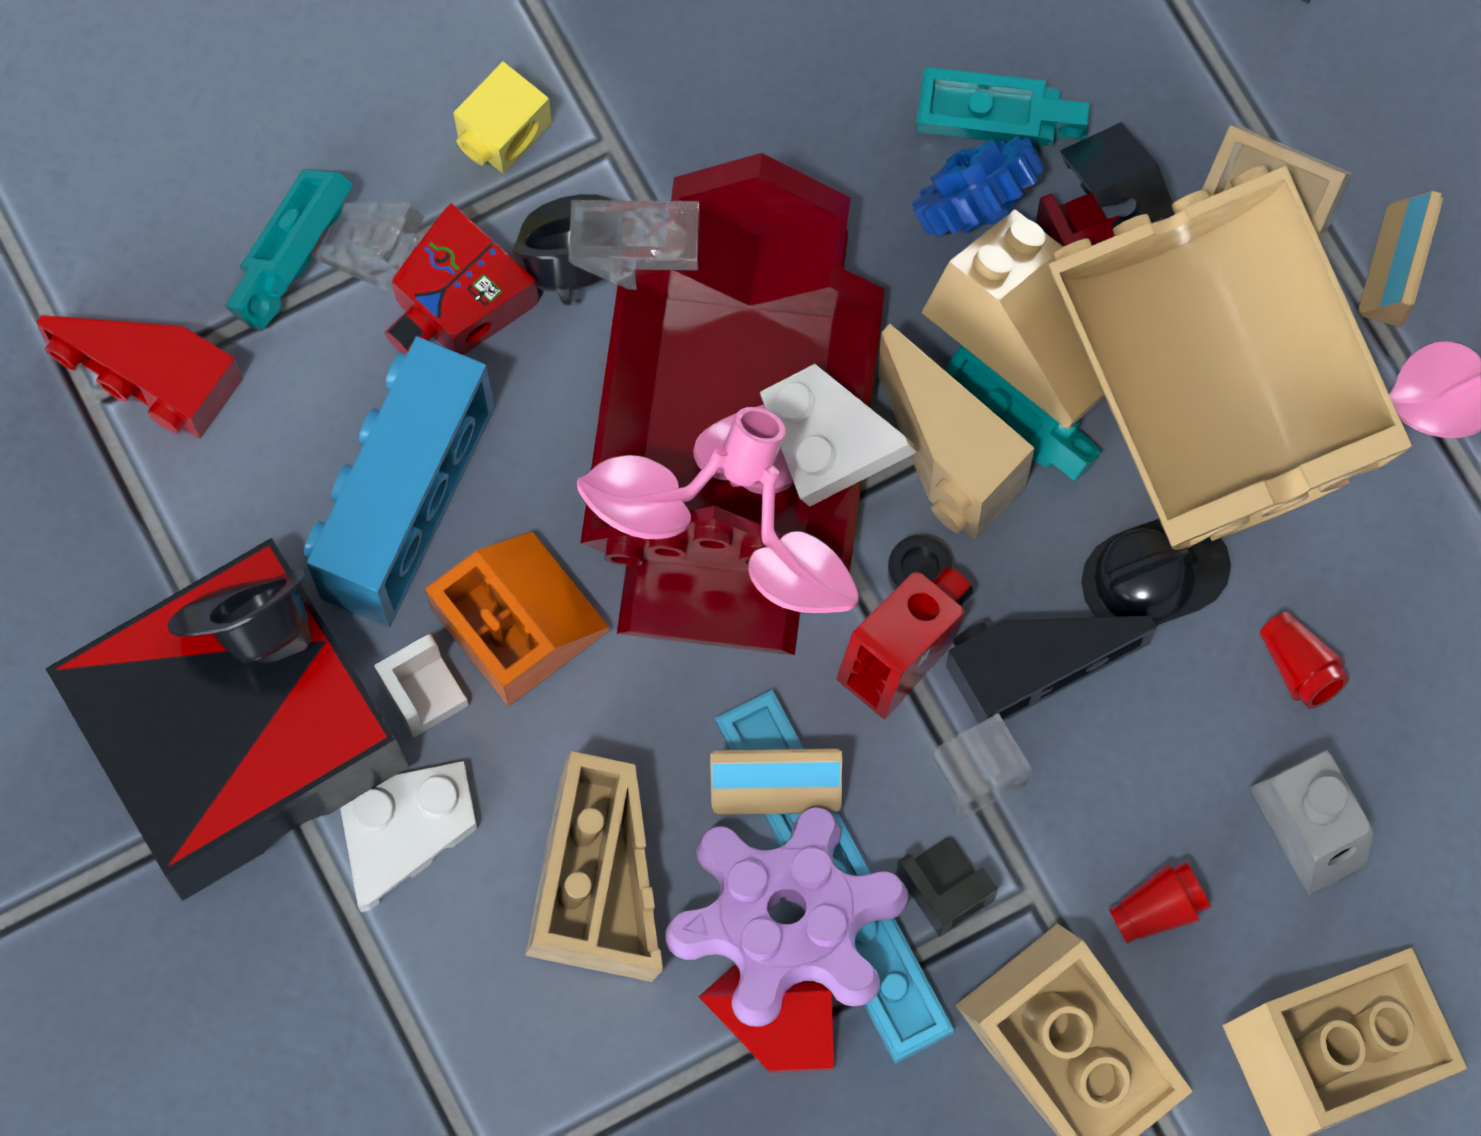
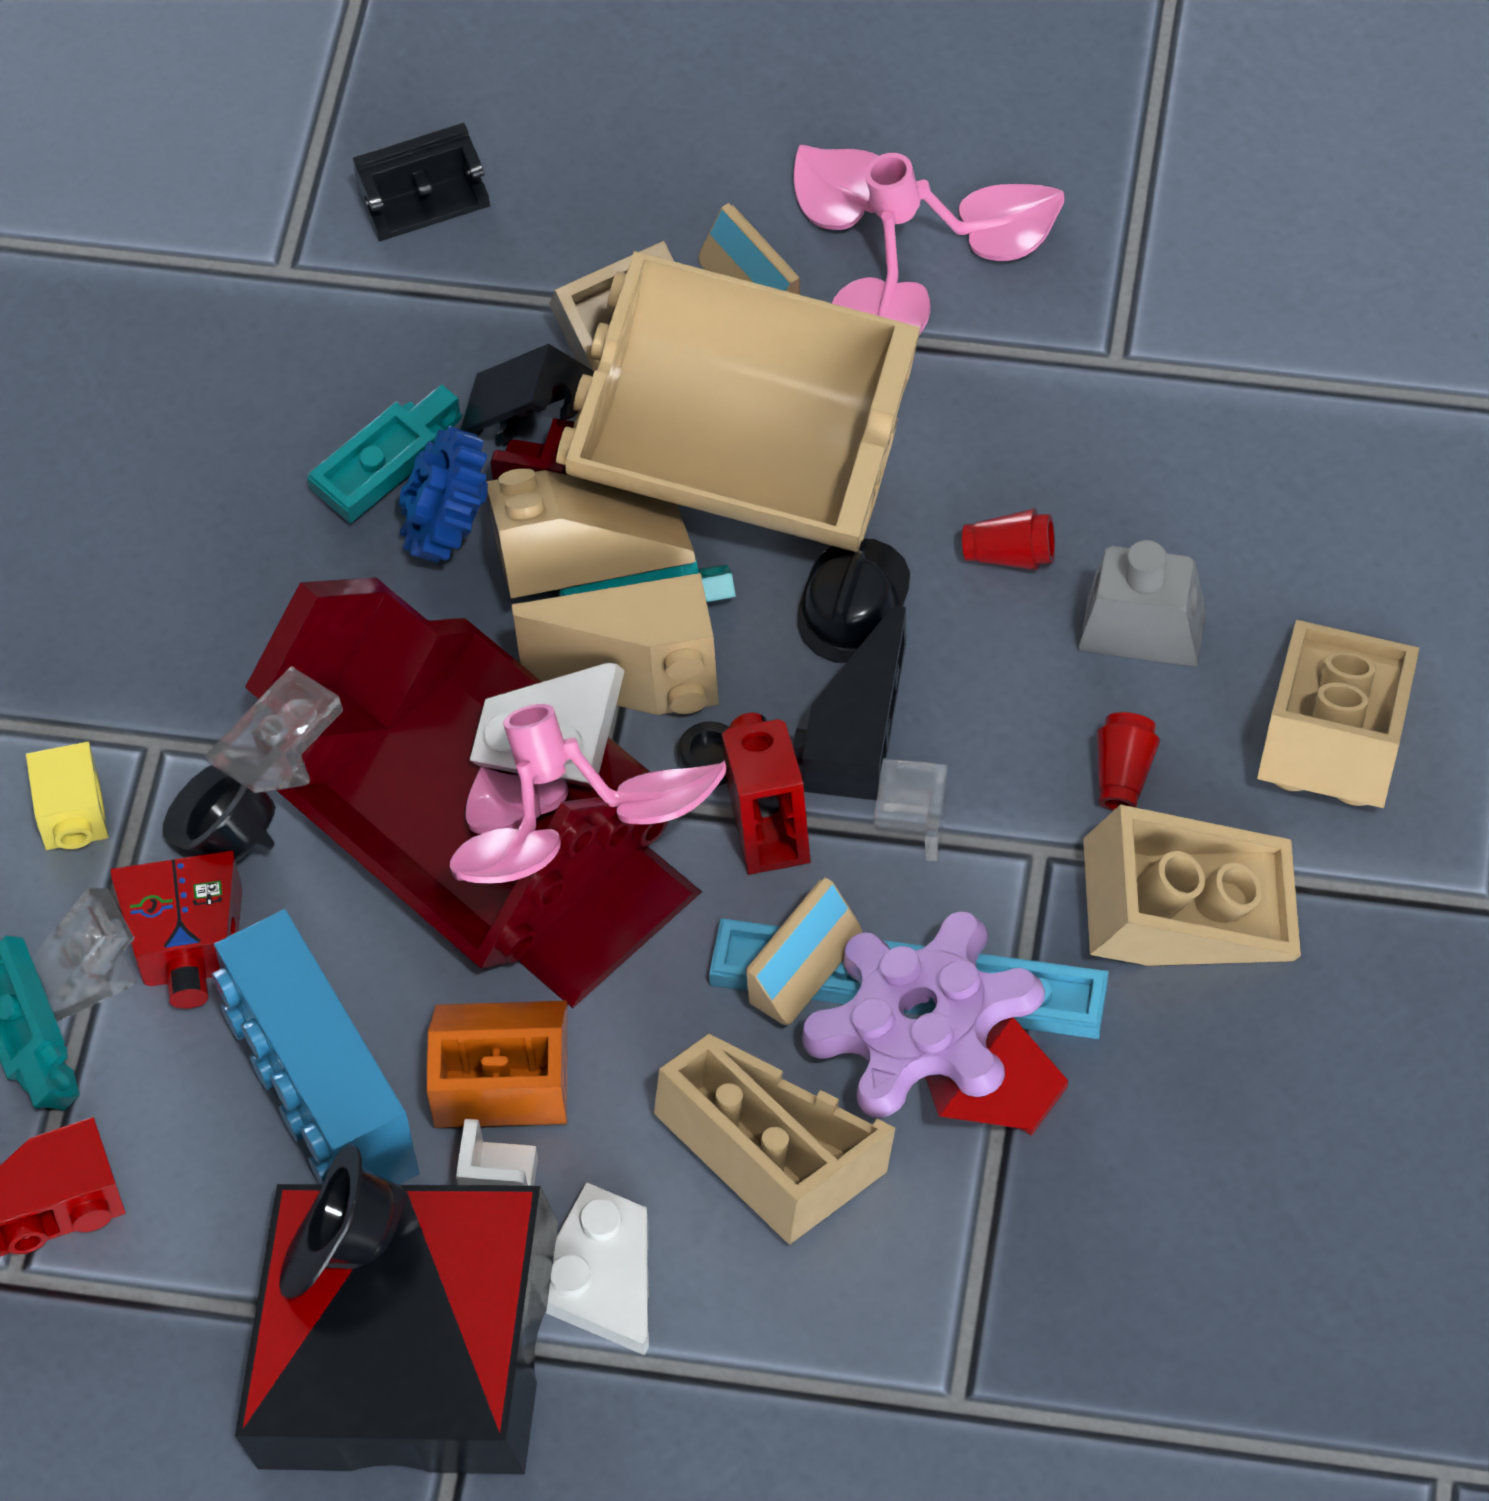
camera: 50 degrees left, 15 degrees down
(946, 885) = (991, 899): pearl dark grey panel -> none

